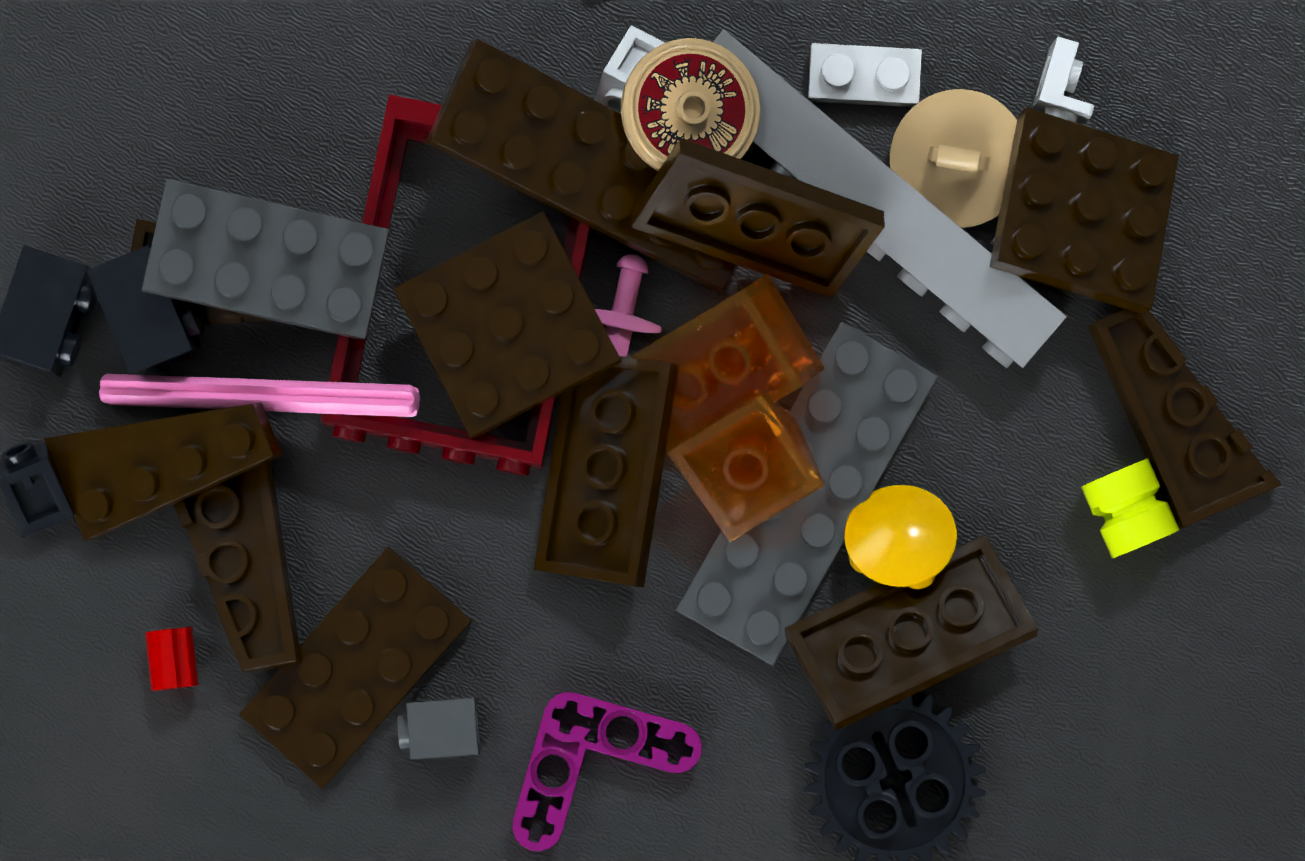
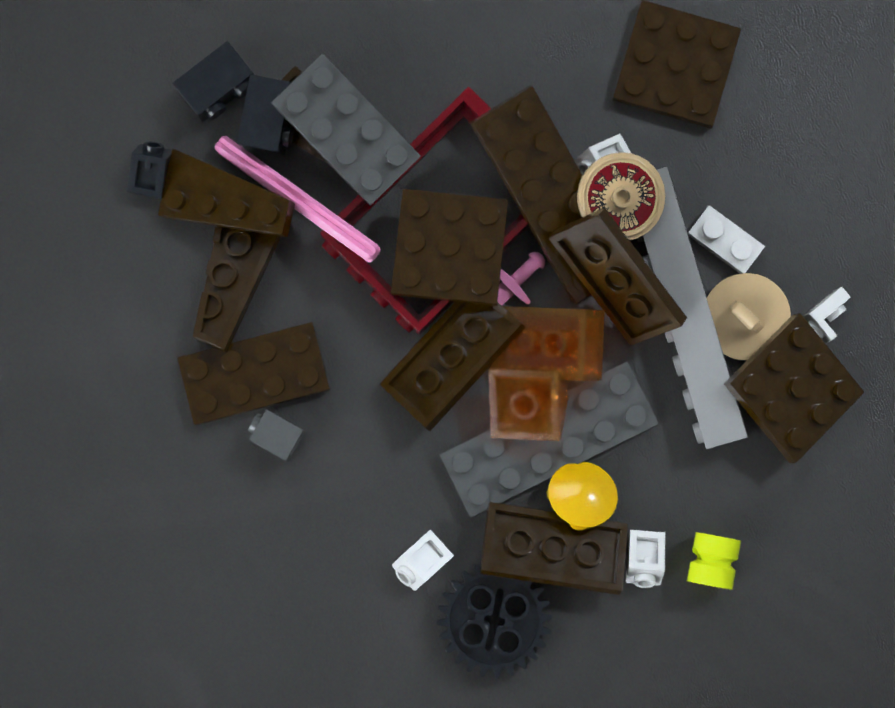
camera: 40 degrees right, 0 degrees up
(171, 659) = (161, 305): red piece -> none
(573, 748) = (337, 491): magenta beam -> none
(746, 766) = (421, 561): none -> white bracket
(1039, 565) = (646, 558): none -> white bracket
(1181, 430) = (768, 547): dark brown wing -> none

